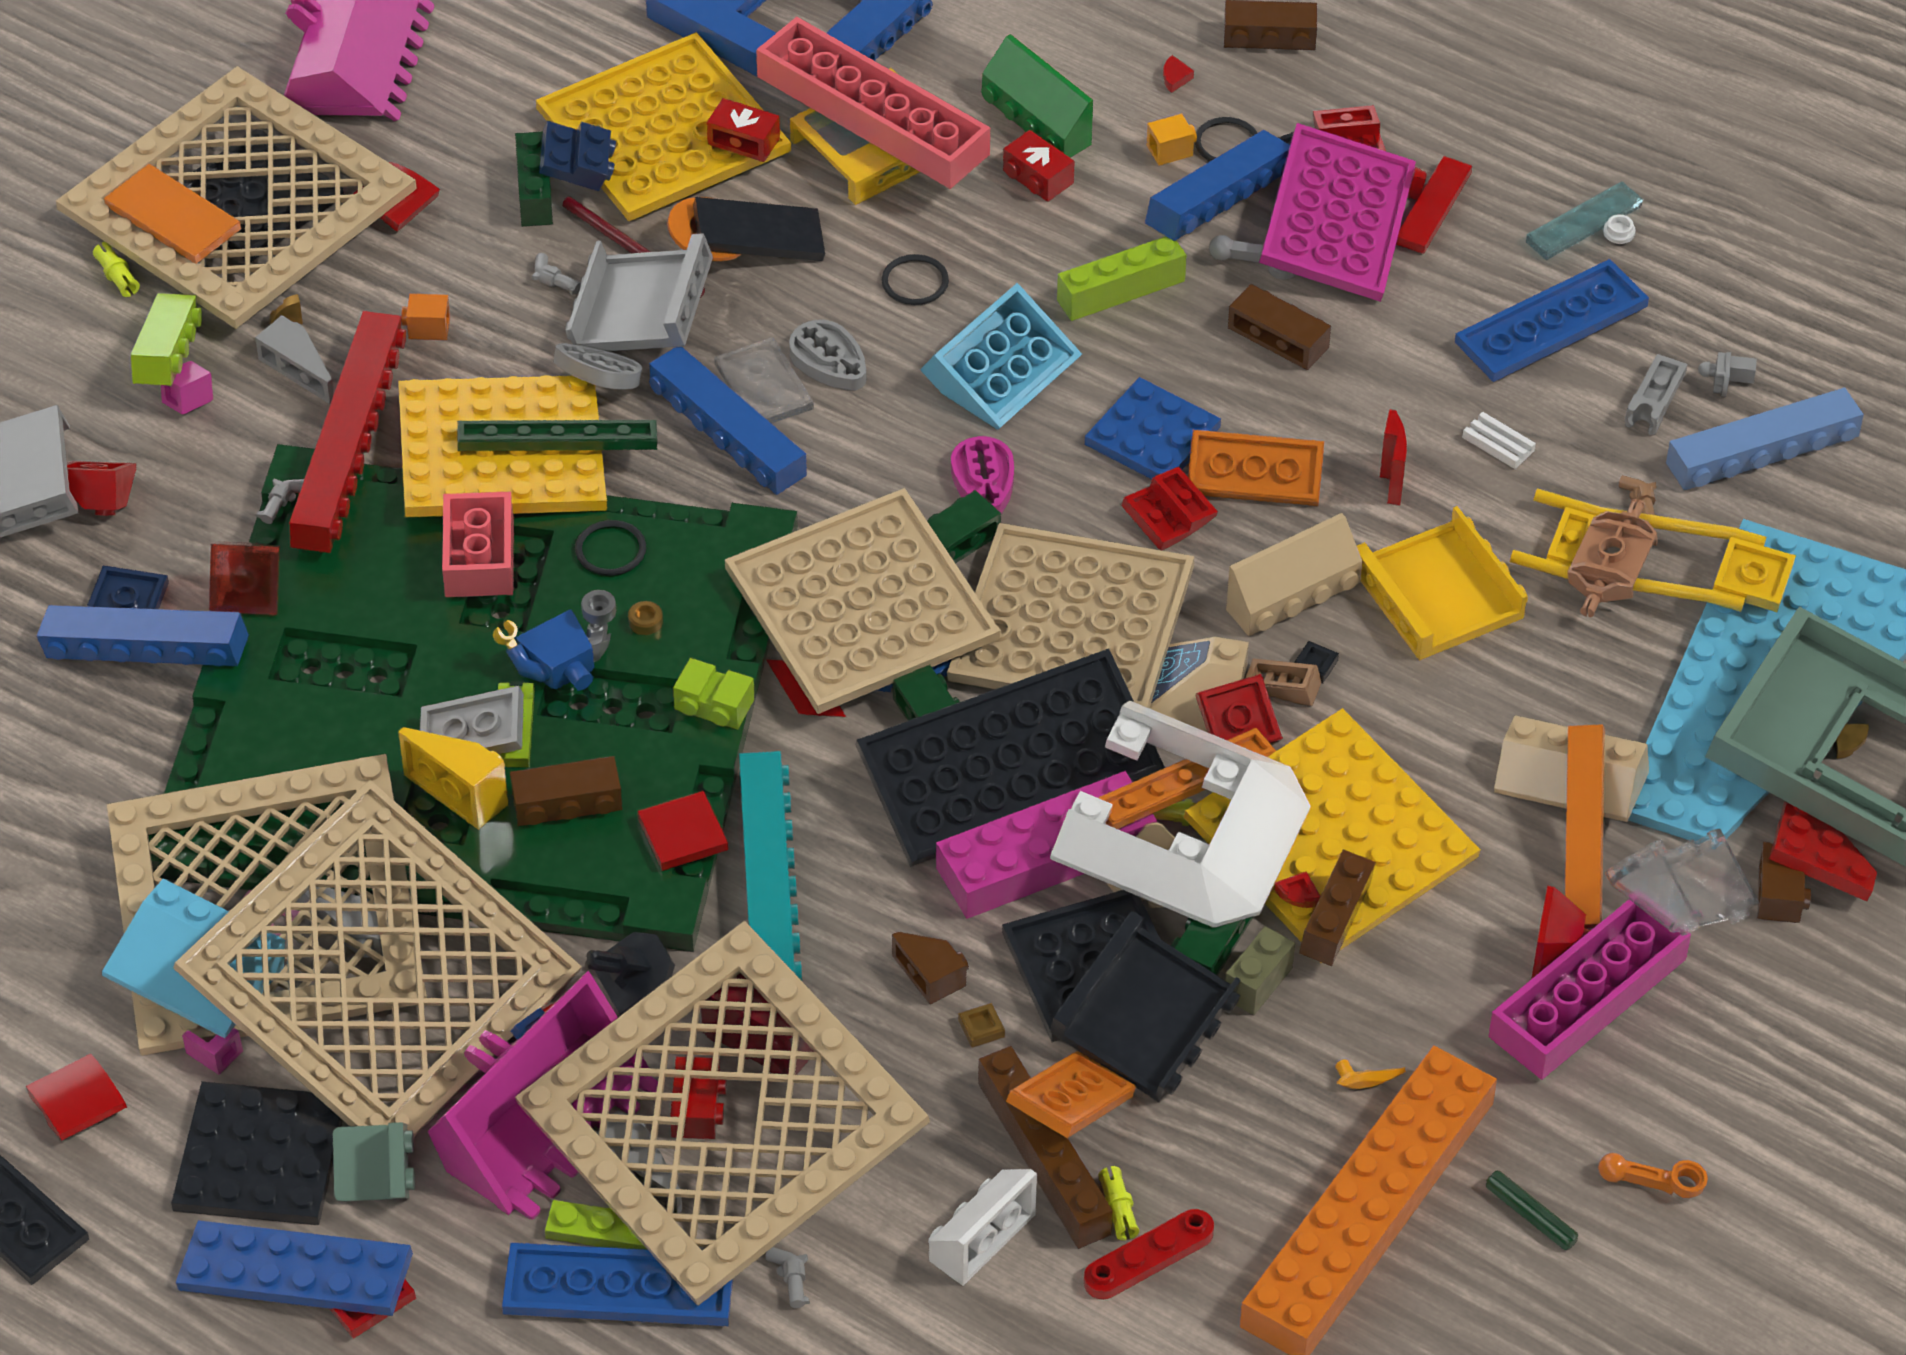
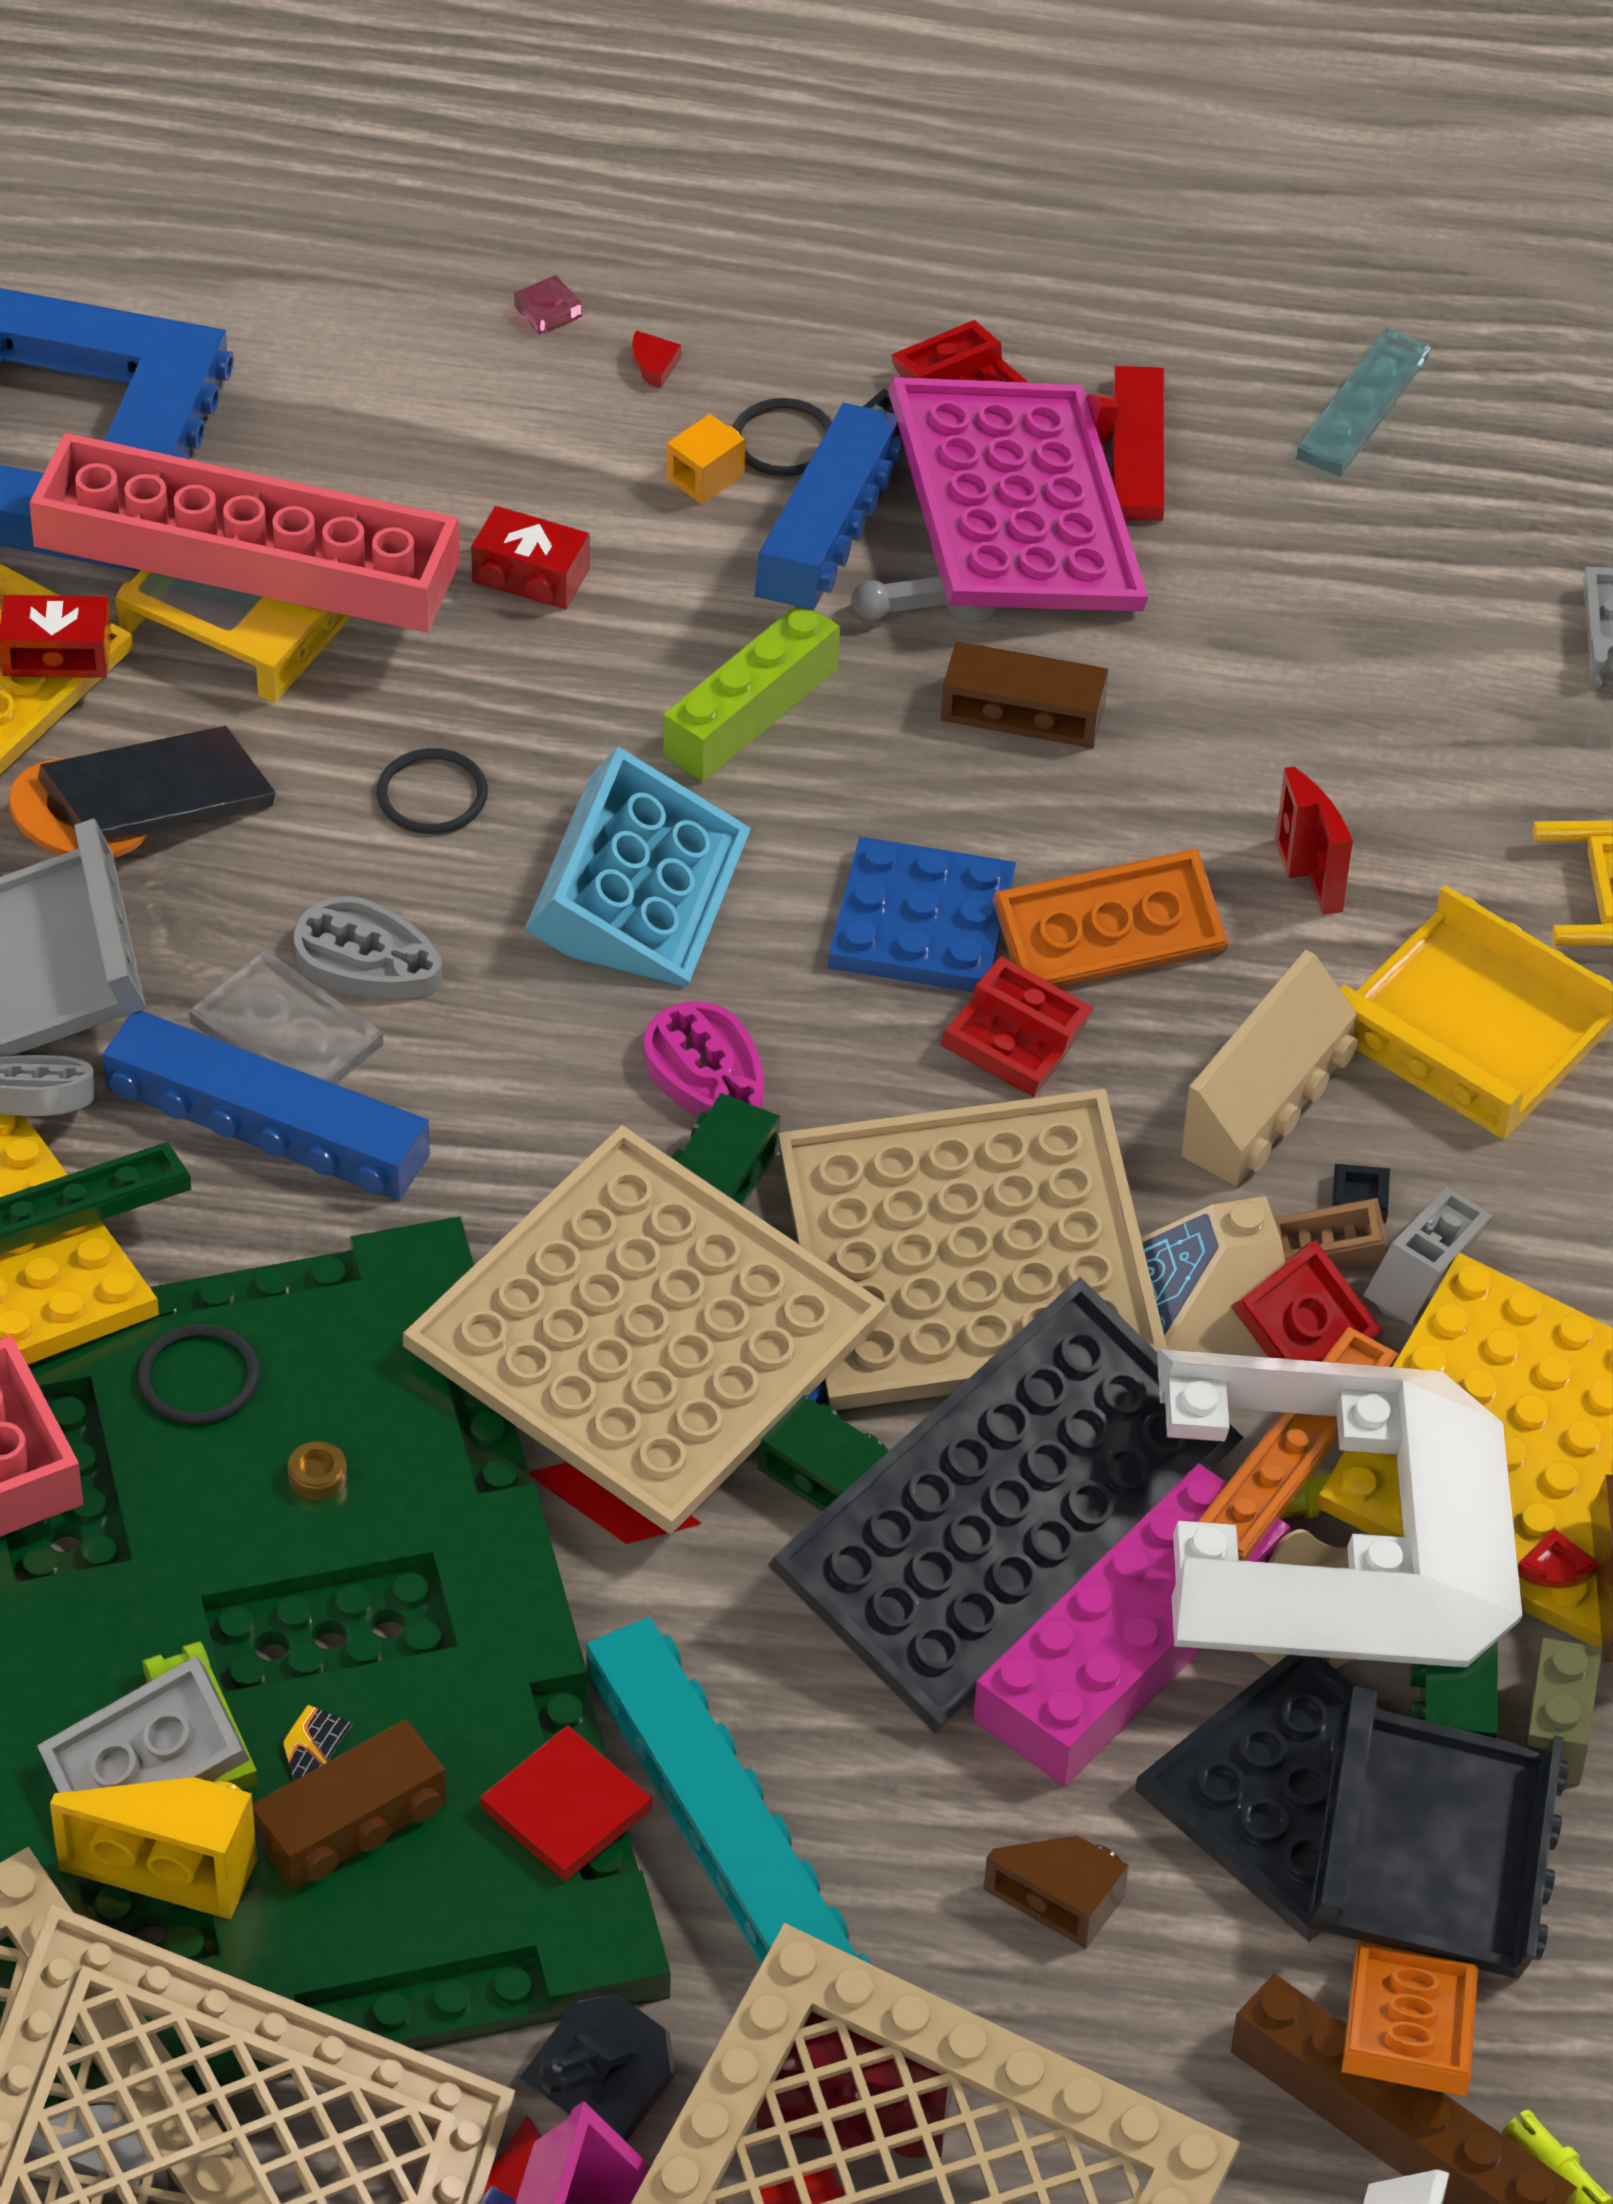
camera: 25 degrees left, 0 degrees up
(559, 647) = (213, 1566): blue torso -> none
(570, 751) = (313, 1740): none -> sticker
(713, 695) = (499, 1559): lime brick -> none
(981, 1025) = (1187, 1953): pearl gold tile -> none
(1038, 97) = (479, 450): green slope -> none
(1131, 26) = (548, 305): none -> clear pink plate
(1270, 25) = (756, 244): reddish brown brick -> none
(1320, 701) = (1424, 1254): none -> light grey slope
(1502, 437) = (1433, 760): white tile -> none
(1551, 320) = (1405, 564): blue plate -> none
(1619, 229) = (1423, 399): white plate -> none

